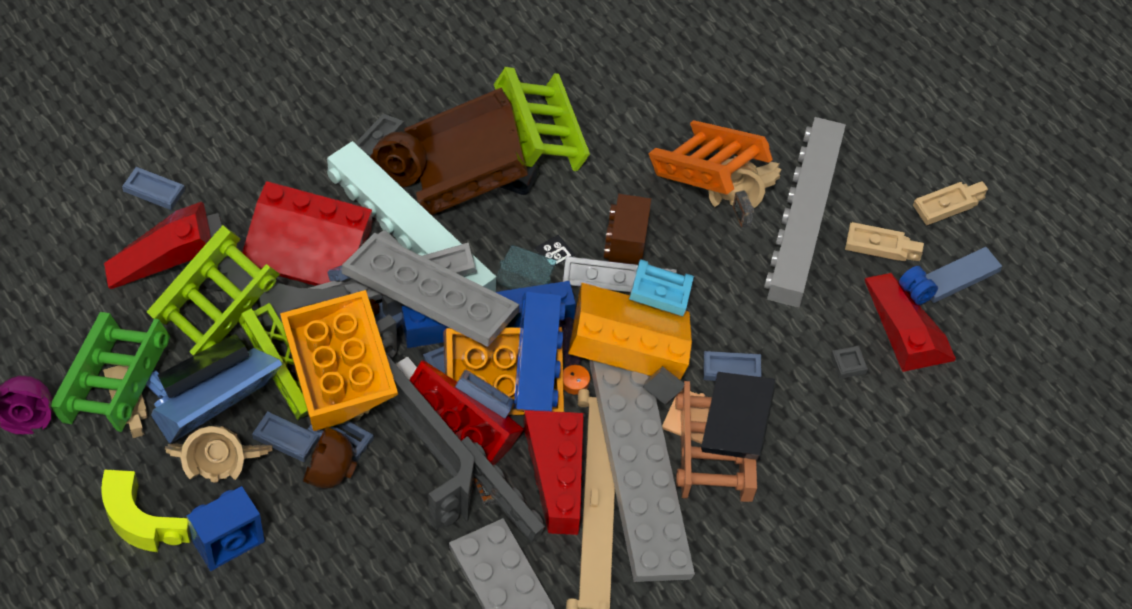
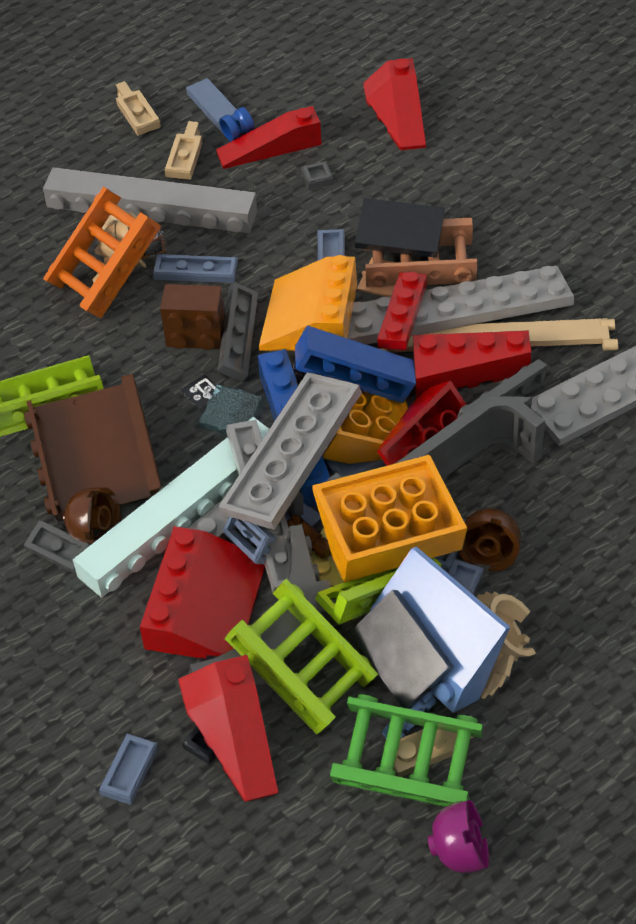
camera: 85 degrees left, 5 degrees down
(132, 524) = (577, 720): neon yellow arch -> none
(225, 528) = (590, 609): blue brick -> none
(485, 393) = (400, 410): sand blue tile -> none
(621, 409) = (402, 311): none -> red plate
(661, 288) = (266, 289): medium azure plate -> none
(663, 385) = (369, 284): dark grey tile -> none
(714, 250) = (195, 268): none -> sand blue tile
(965, 446) = (395, 99): none -> red wedge

